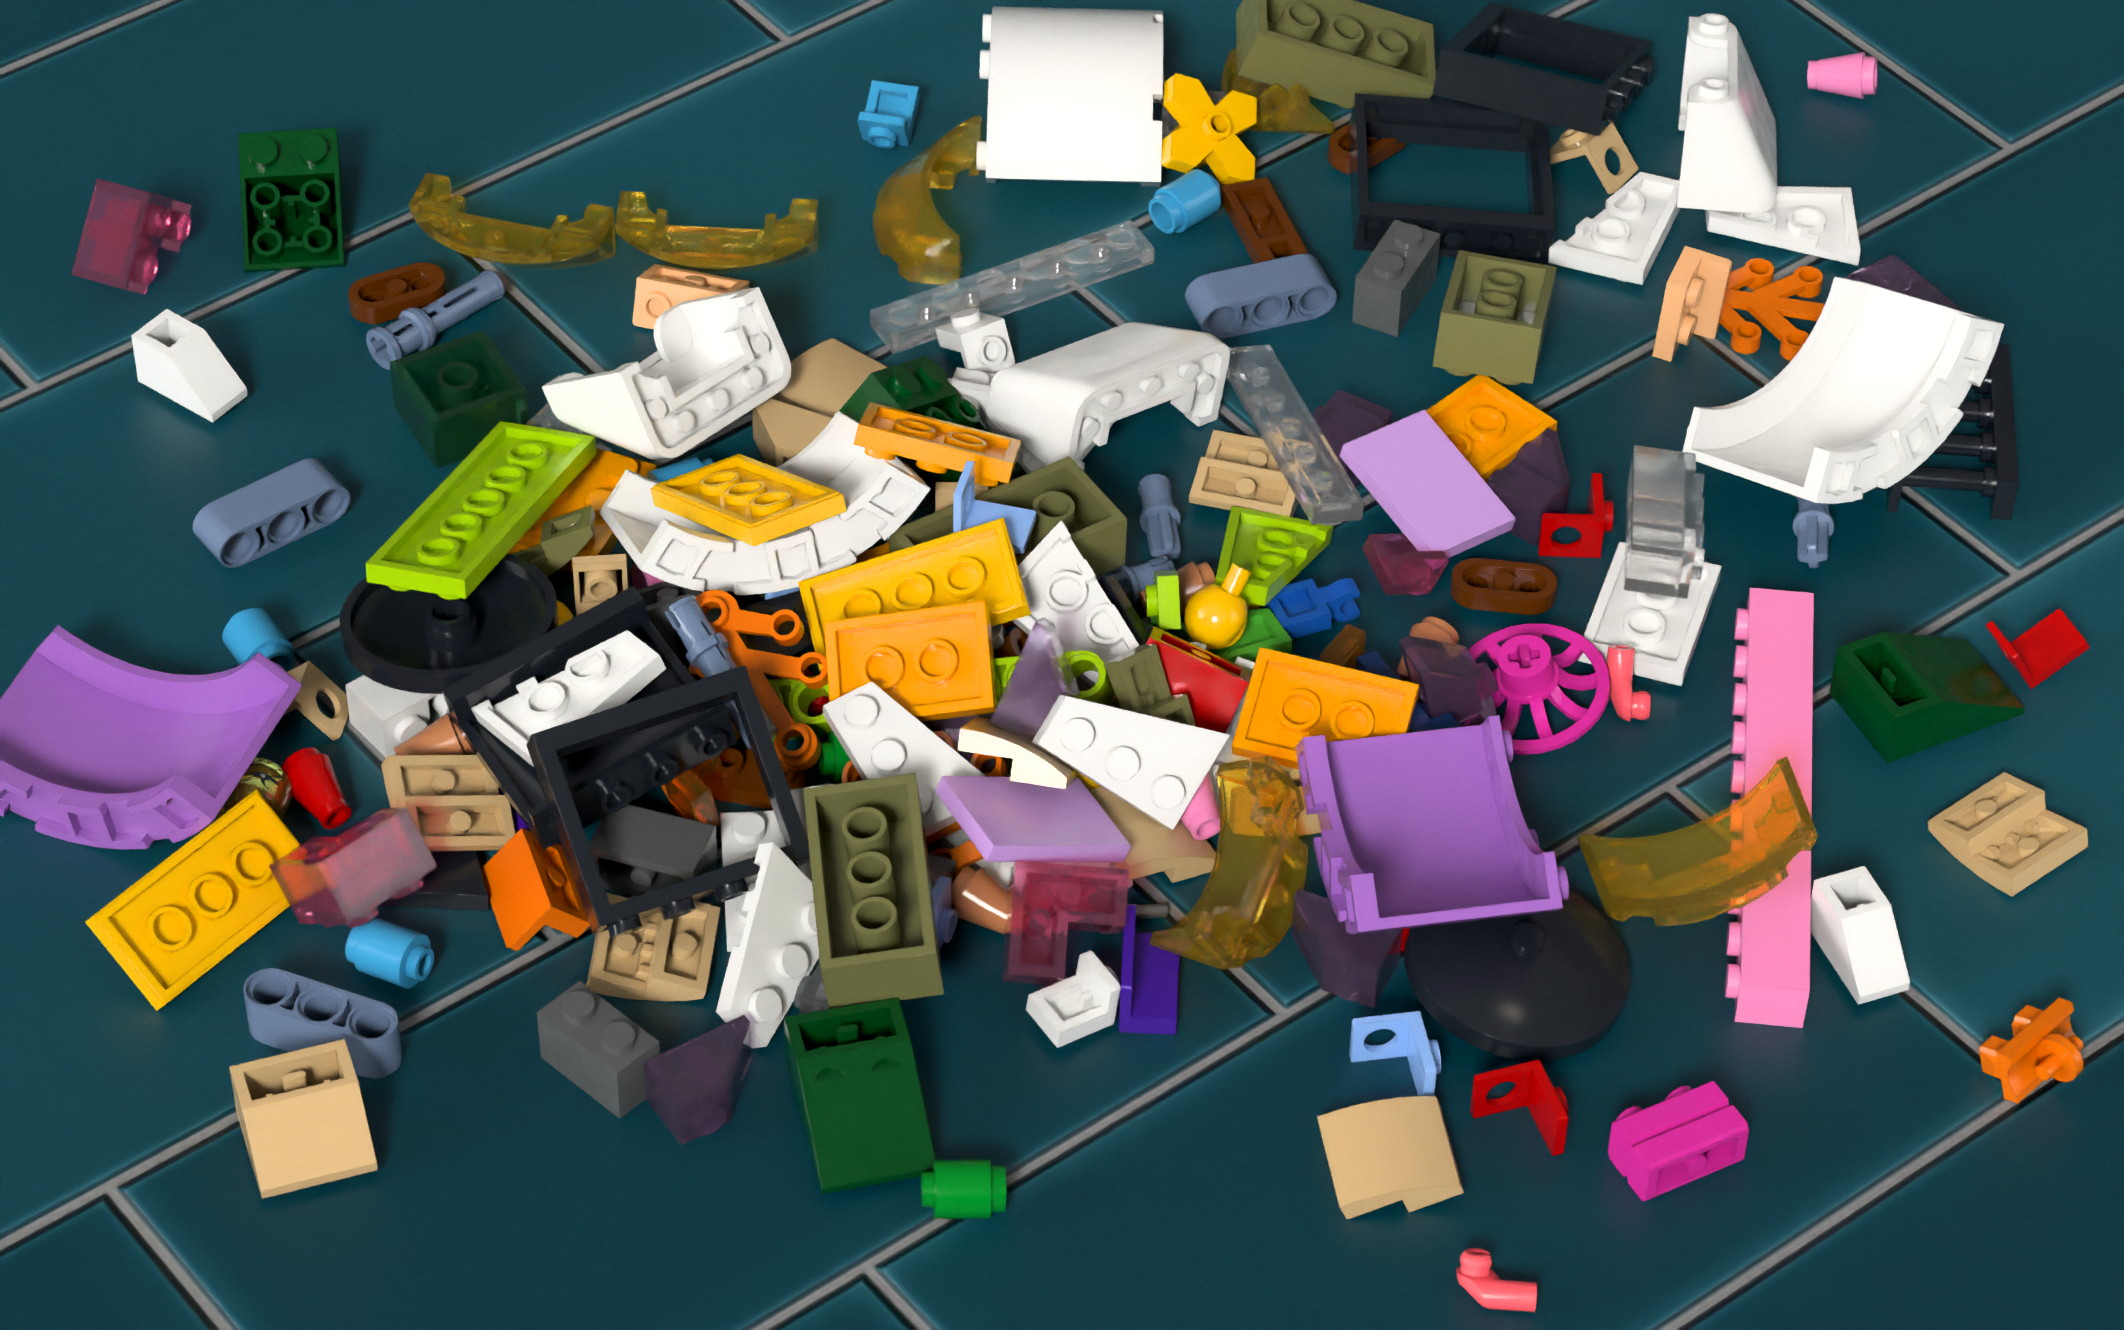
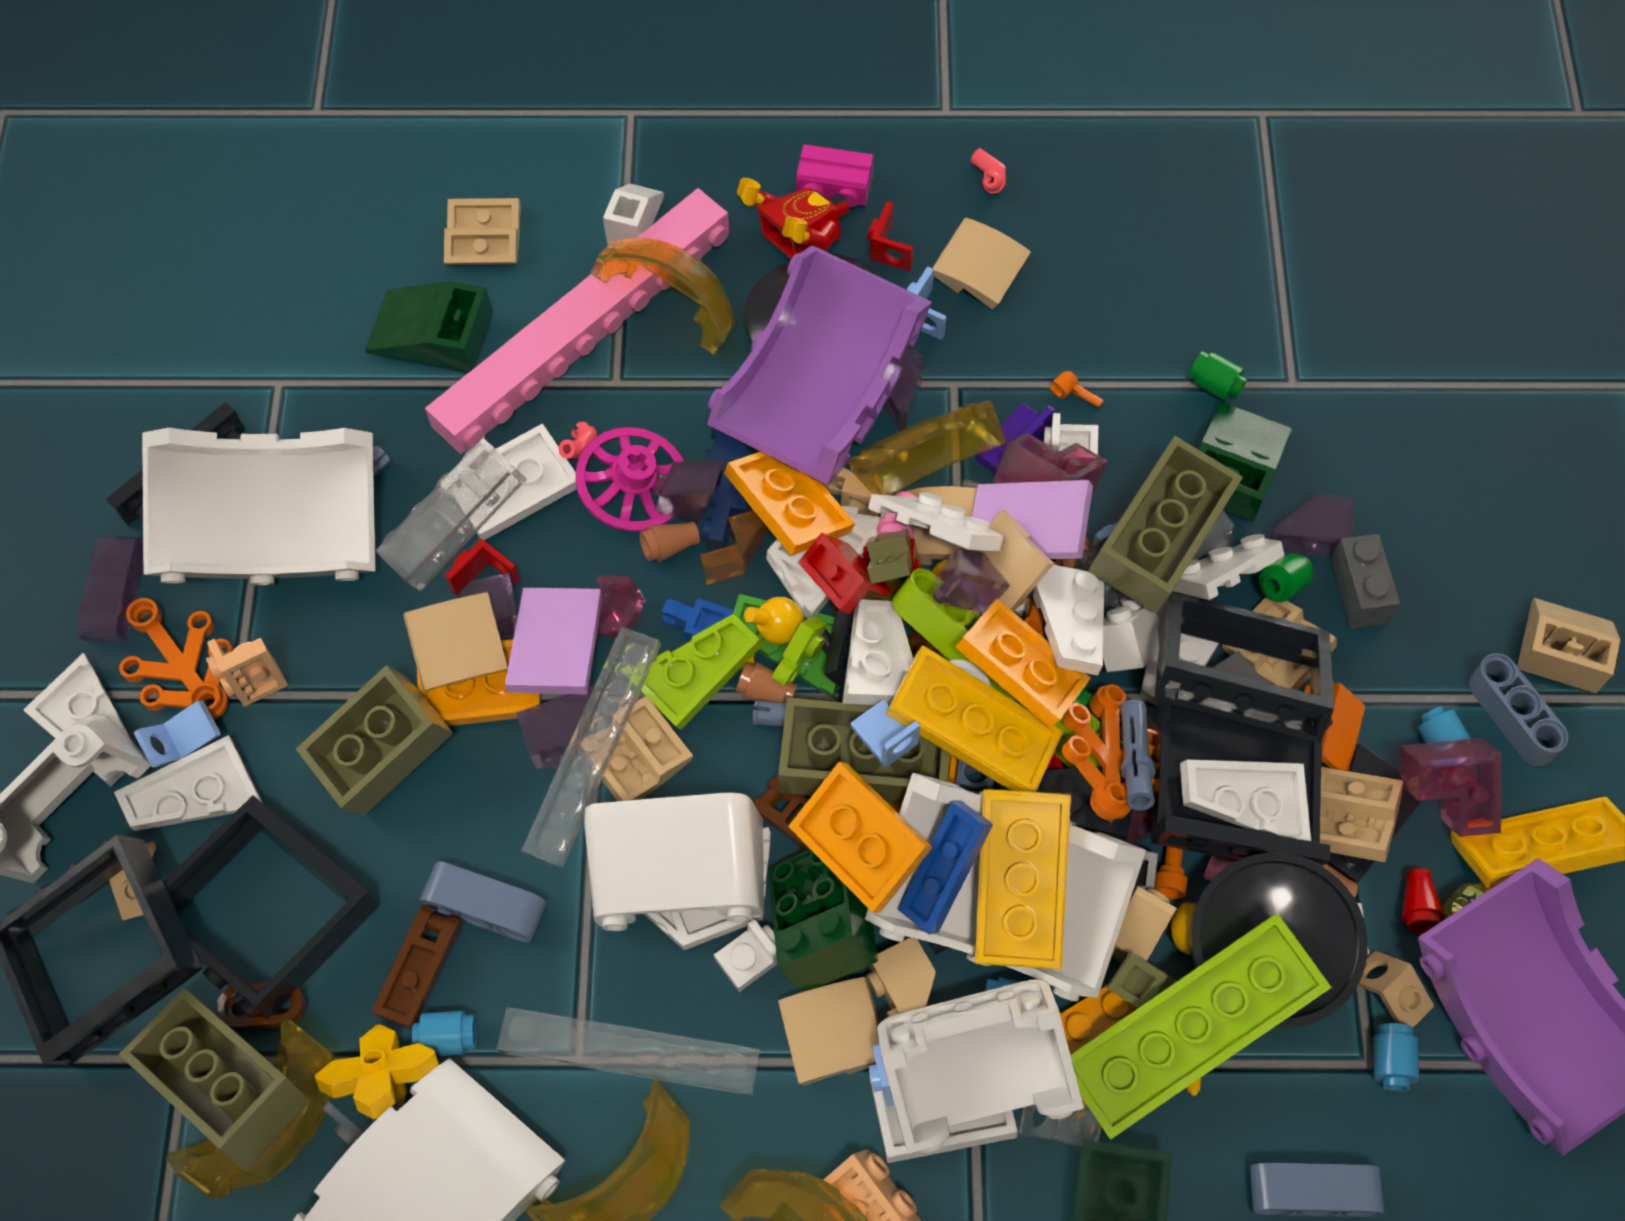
camera: 140 degrees left, 20 degrees up
(694, 995) = (1286, 577): none -> green brick
(830, 465) = (945, 867): none -> blue plate
(980, 340) = (704, 1006): white bracket -> none
(1144, 1082) = (1068, 383): none -> orange hand
(1159, 516) = (723, 757): sand blue axle -> none
(1396, 278) = (385, 845): dark grey brick -> none
(1503, 586) = (575, 559): reddish brown plate -> none
(1515, 420) = (455, 641): none -> tan slope
(1646, 1035) = (795, 219): none -> red torso
(1678, 240) = (179, 735): none -> light blue bracket
(2039, 1050) = (613, 105): orange hips -> none
(2042, 648) = (336, 313): red bracket -> none

